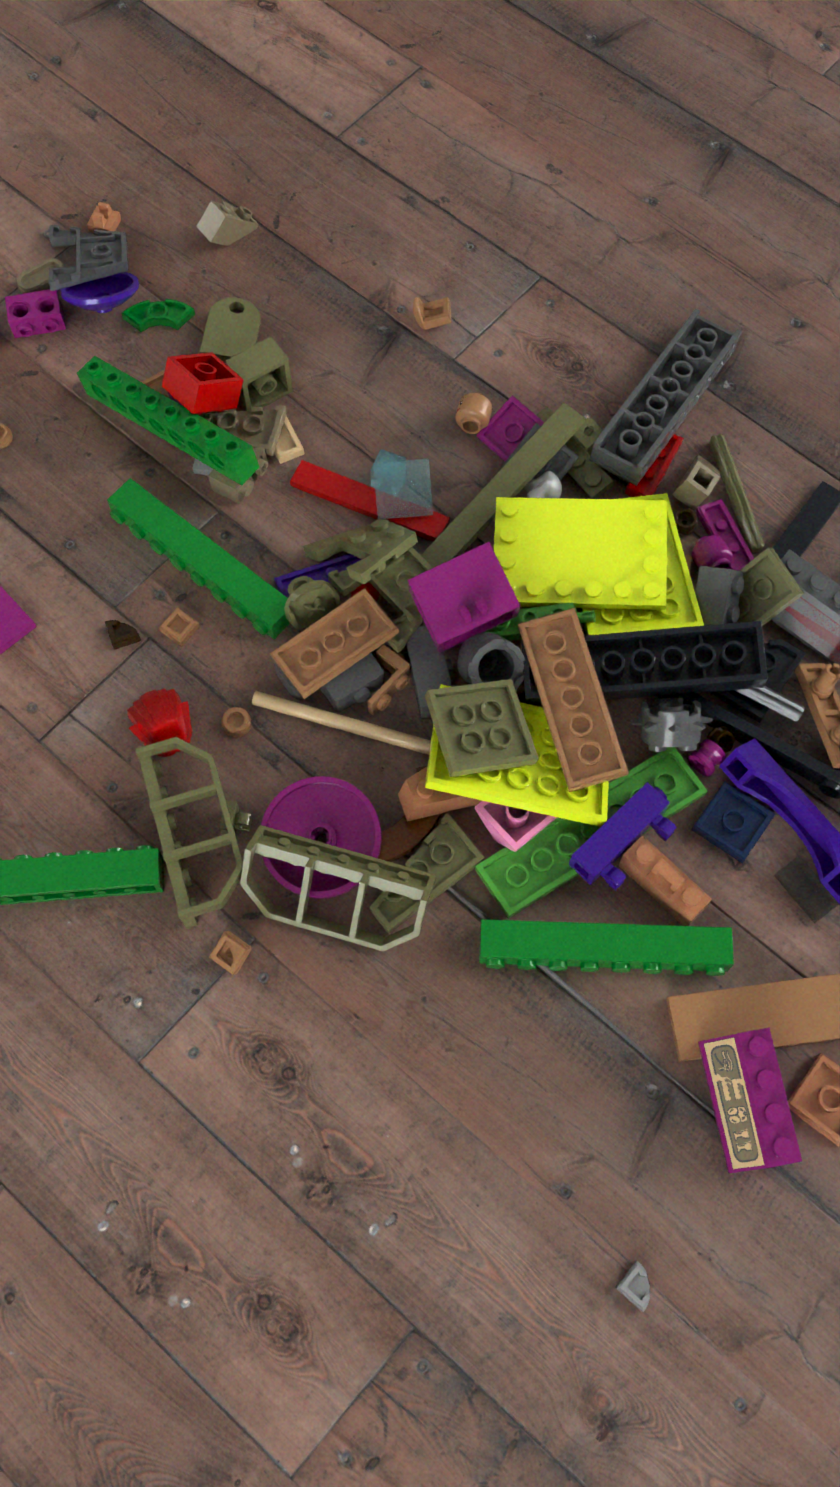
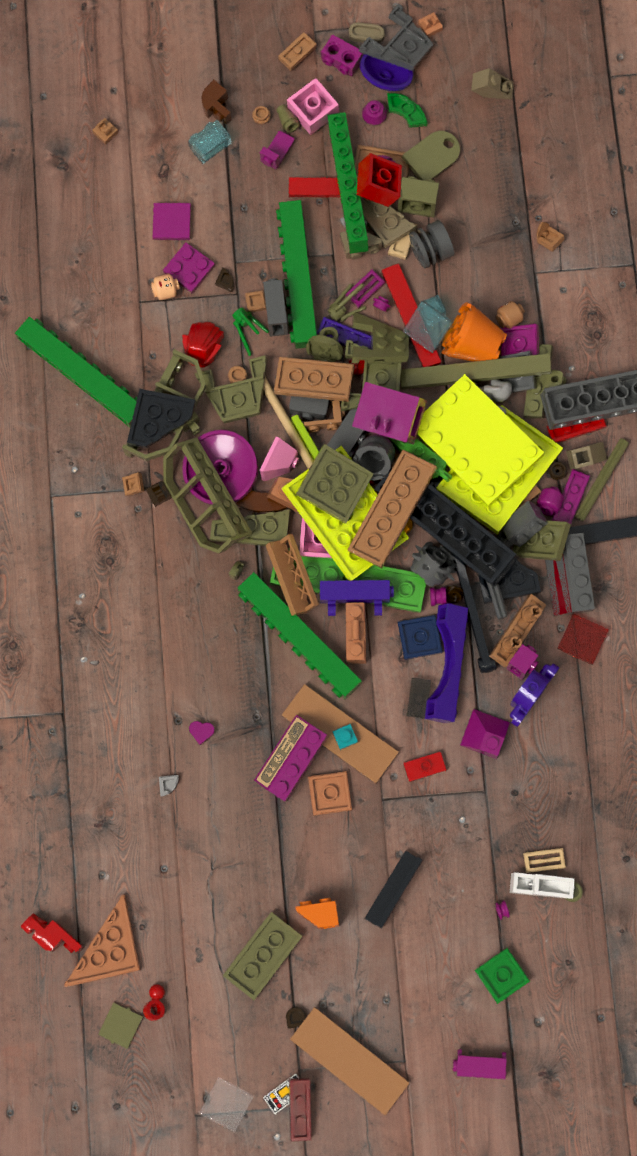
camera: 50 degrees right, 10 degrees up
(35, 417) = (287, 118): none -> olive cone
(50, 380) = (312, 106): none -> bright pink brick
(51, 456) = (277, 150): none -> magenta bracket
(55, 696) = (164, 287): none -> light nougat head
(64, 655) = (189, 267): none -> magenta plate
(125, 340) = (374, 113): none -> magenta cone
(131, 461) = (313, 187): none -> red tile
(184, 654) = (243, 319): none -> green plant
(191, 839) = (158, 416): none -> black plate
(212, 607) = (275, 307): none -> dark grey brick
(263, 745) = (240, 398): none -> olive wing
(271, 936) = (158, 493): none -> dark brown tile
(283, 559) = (337, 309): none -> olive plant
(290, 534) = (377, 278): none -> magenta tile
(321, 408) = (428, 245): none -> dark grey wheel
(325, 513) = (381, 303): none -> magenta plate
(381, 766) = (279, 460): none -> bright pink slope
(390, 719) = (306, 438): none -> lime tile
(455, 939) = (236, 570): none -> olive tile
(460, 457) = (473, 336): none -> orange cone
(529, 884) = (290, 577): none -> medium nougat fence
(608, 1176) = (201, 732): none -> magenta tile
(780, 1012) = (345, 737): none -> teal plate

